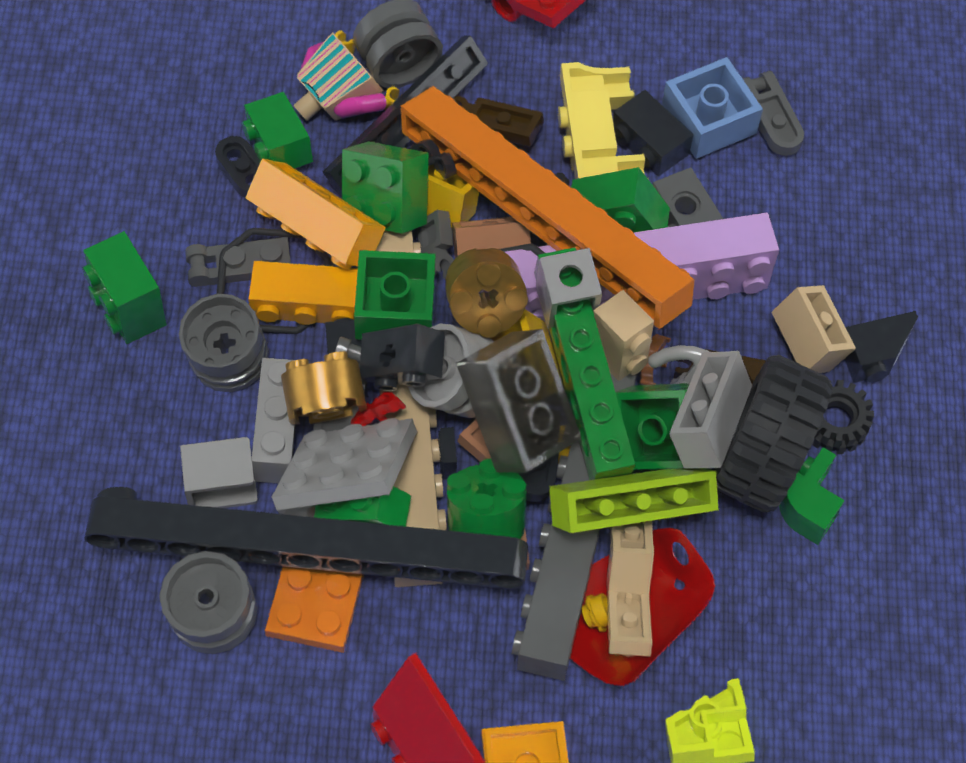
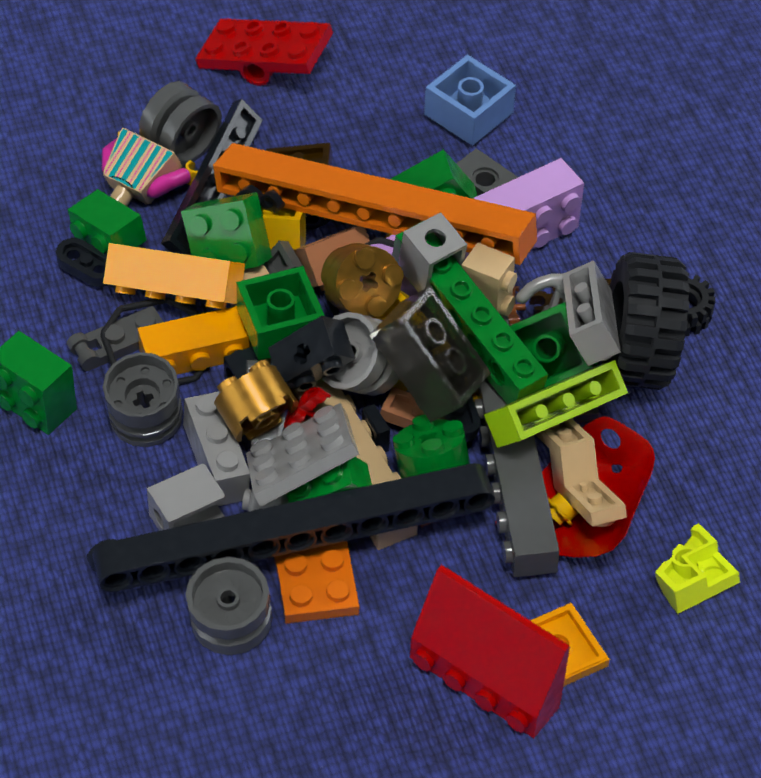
camera: 20 degrees left, 10 degrees down
(588, 121) = (369, 133): light yellow bracket -> none
(653, 131) = (425, 132): black brick -> none
(778, 120) = (530, 98): dark grey plate -> none
(807, 505) = (697, 374): green brick -> none
(813, 329) = (629, 231): tan brick -> none
(878, 346) = (689, 239): black slope -> none

